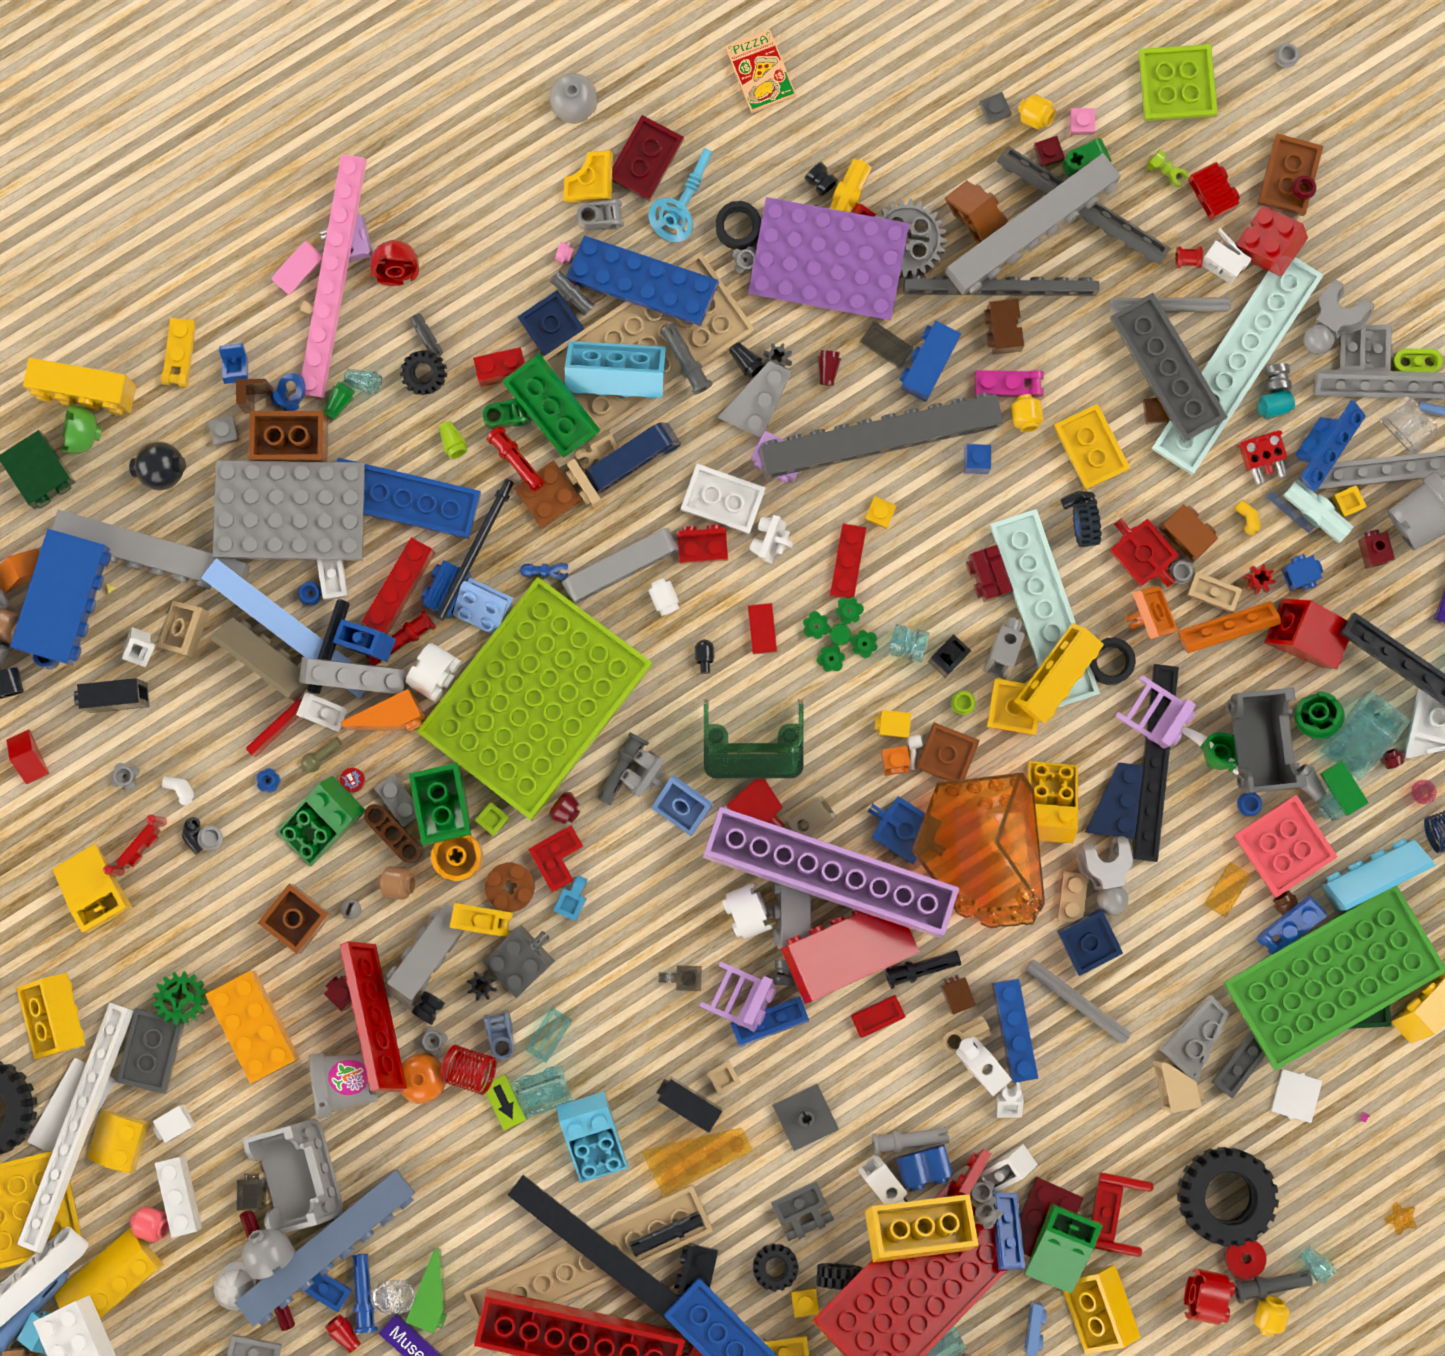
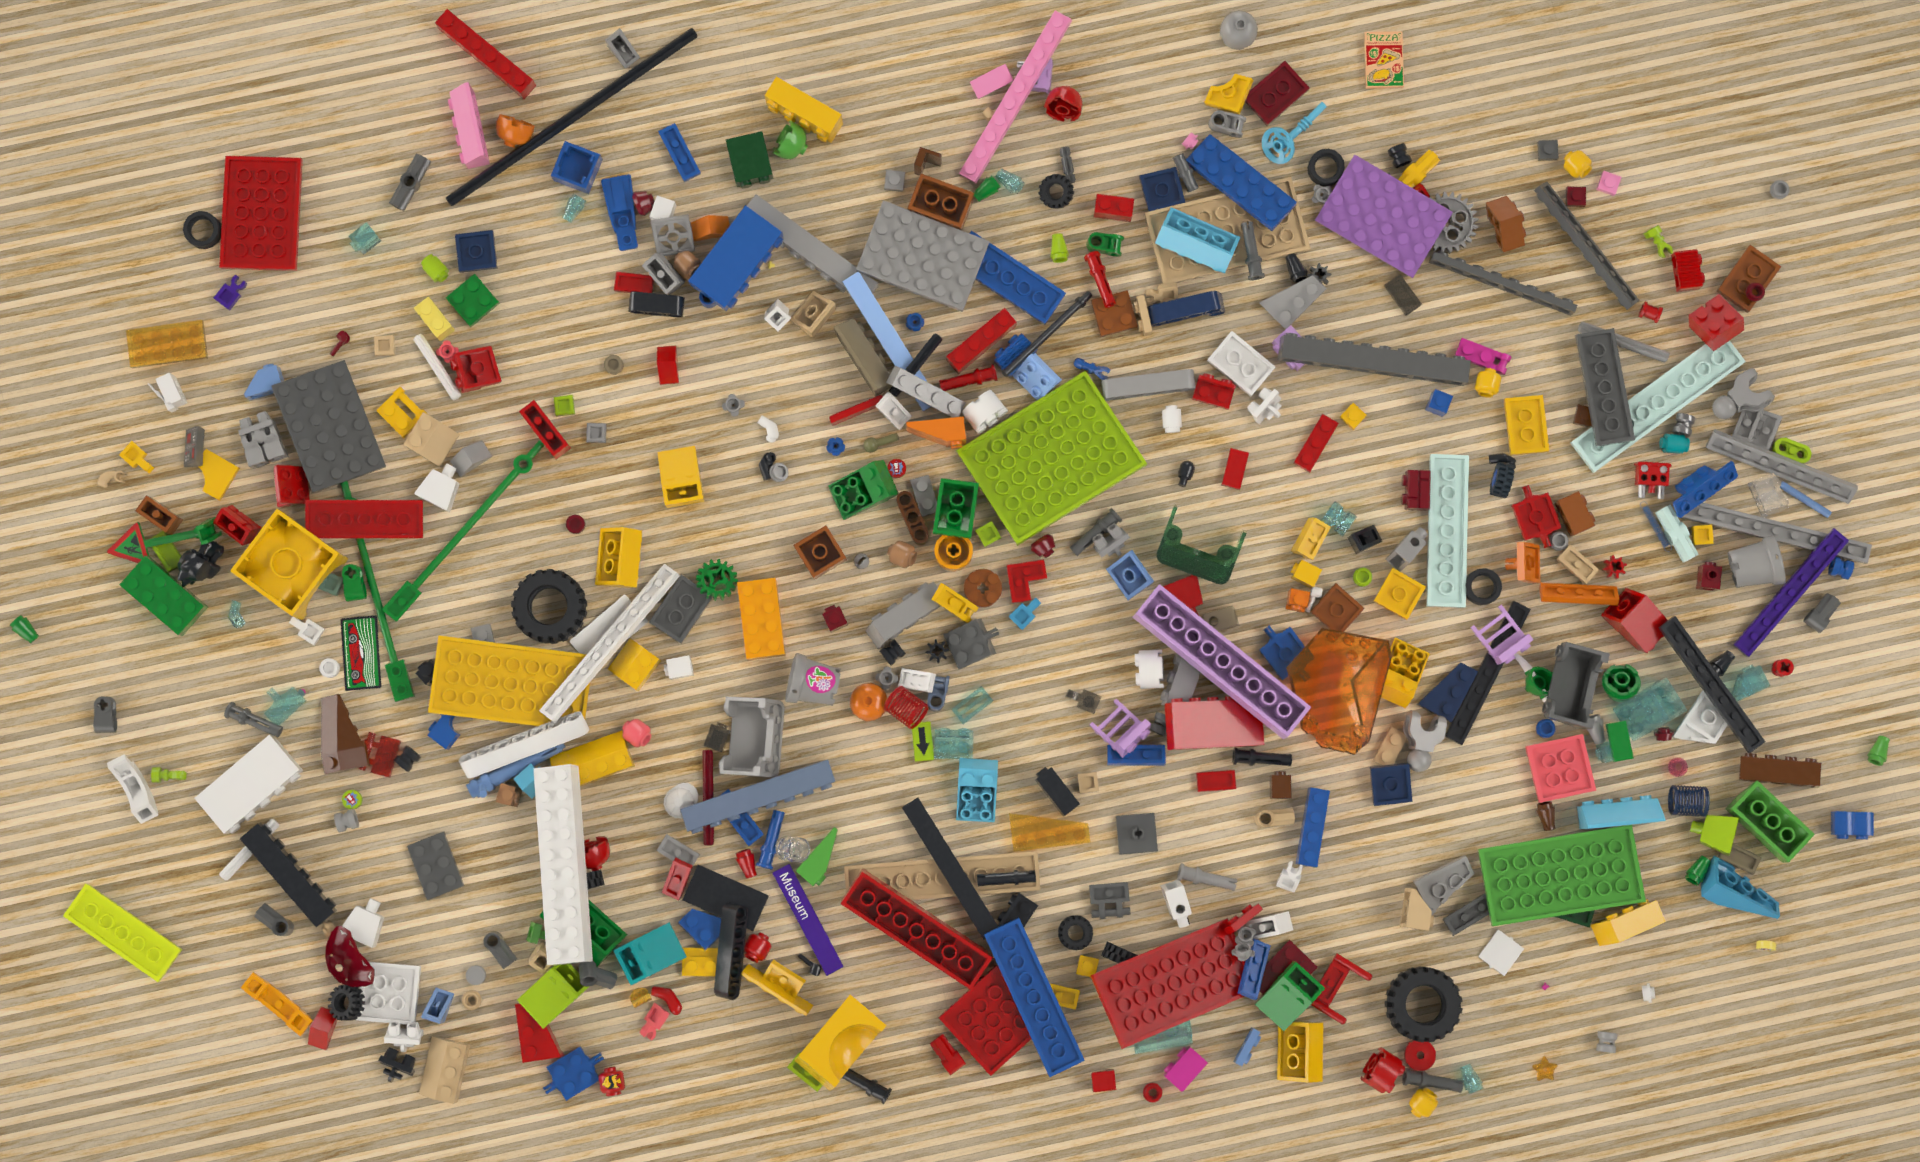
camera: 20 degrees right, 0 degrees up
(112, 695) = (746, 343): black brick -> none
(132, 854) = (733, 455): red plate -> none
(158, 466) = (838, 189): black brick -> none
(178, 1196) = (664, 720): white brick -> none
(179, 352) = (883, 111): yellow plate -> none
(233, 362) = (920, 133): blue bracket -> none
(265, 1252) = (714, 782): light grey cylinder -> none
(279, 397) = (944, 170): blue piece -> none
(332, 579) = (935, 317): white plate -> none
(364, 640) = (943, 370): blue brick -> none
(373, 1017) = (852, 643): red plate -> none
(470, 1031) = (917, 680): none -> white plate
(551, 405) = (1141, 249): green plate -> none
(828, 366) = (1354, 295): dark red cone -> none
(840, 634) = (1290, 494): green plant -> none
(884, 679) = (1310, 538): none -> yellow hinge
(921, 1228) = (1193, 941): yellow brick -> none
(924, 1167) = (1210, 901): blue brick -> none
(929, 360) = (1430, 318): blue brick -> none
(975, 1057) = (1275, 834): white torso -> none
(1002, 321) = (1495, 308): reddish brown brick -> none
(1033, 224) = (1543, 246): light grey brick -> none
(1059, 673) = (1441, 580): yellow brick -> none
(1078, 1001) = (1366, 824): light grey axle -> none
(1083, 156) = (1604, 212): green piece -> none
(1177, 82) = (1690, 180): lime plate -> none
(1225, 261) = (1676, 324): white piece -> none
(1227, 889) = (1506, 784): clear yellow tile -> none
(1252, 517) = (1626, 519): yellow arm -> none
(1292, 925) = (1544, 826): blue plate -> none
(1302, 572) = (1648, 574): blue brick -> none
(1430, 646) = (1722, 662): none -> black cone

